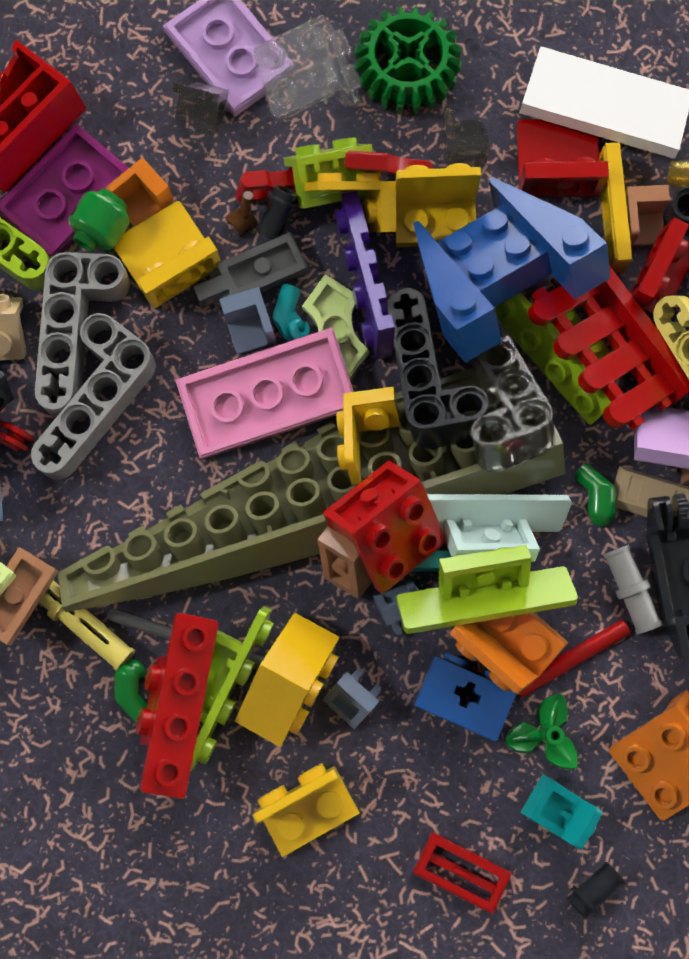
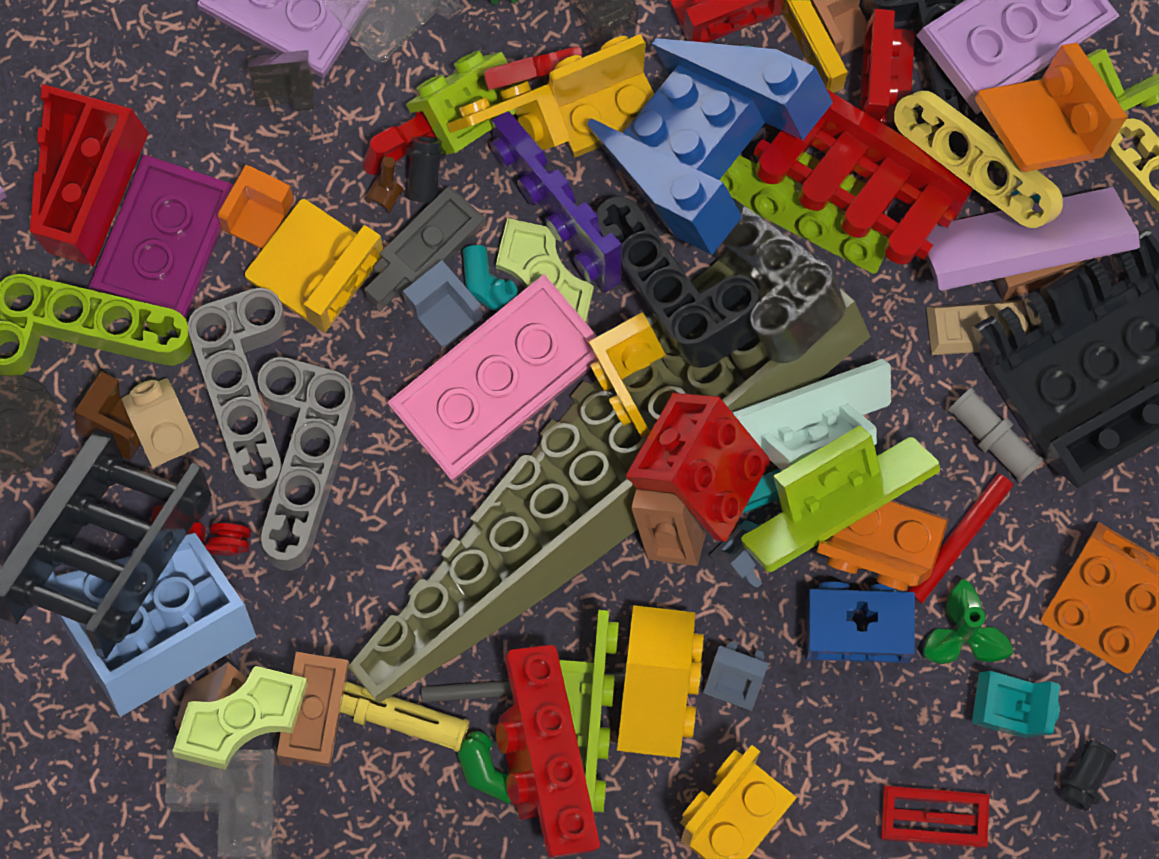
camera: 25 degrees left, 5 degrees down
(99, 220) = (224, 255): green head -> none
(600, 495) = (919, 347): green arm -> none

